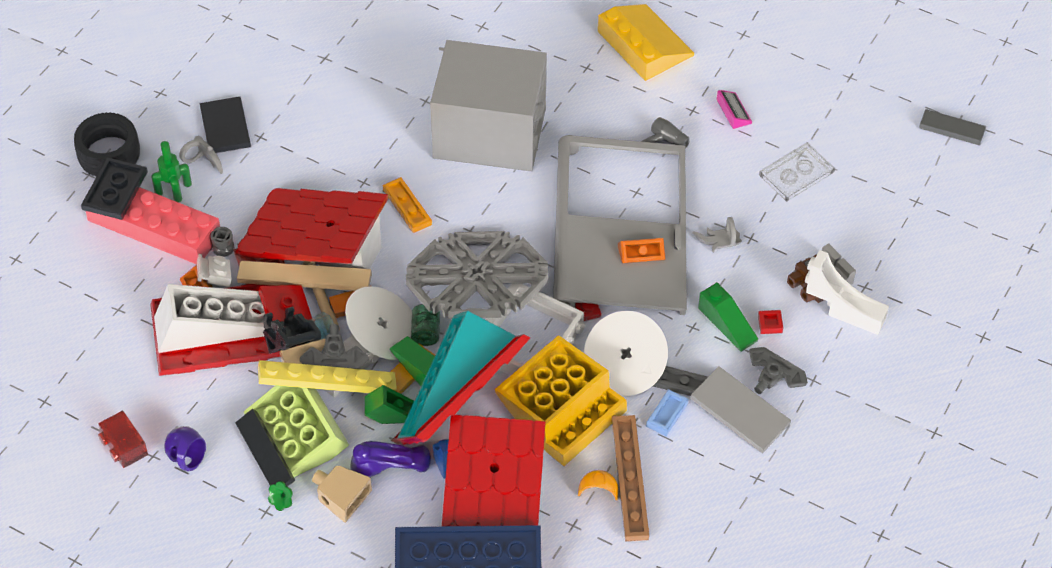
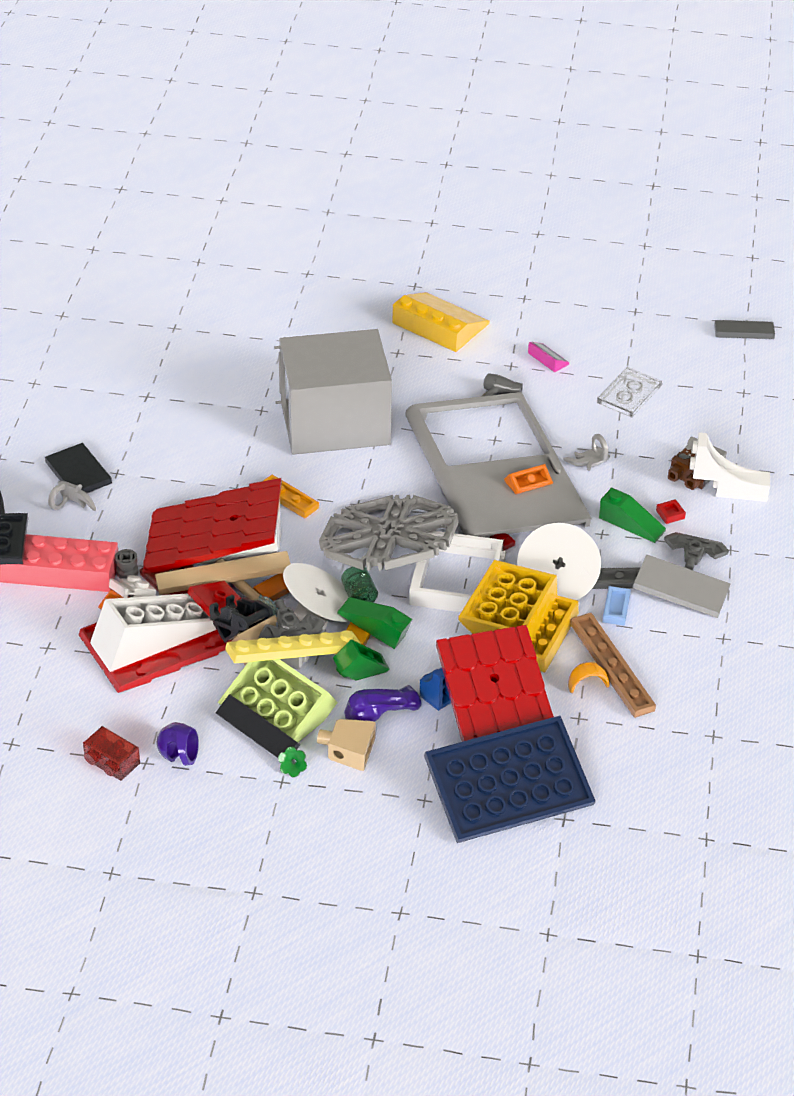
camera: 20 degrees left, 10 degrees down
(170, 172) = (50, 513): green plant -> none
(462, 365) = (426, 595): teal piece -> none

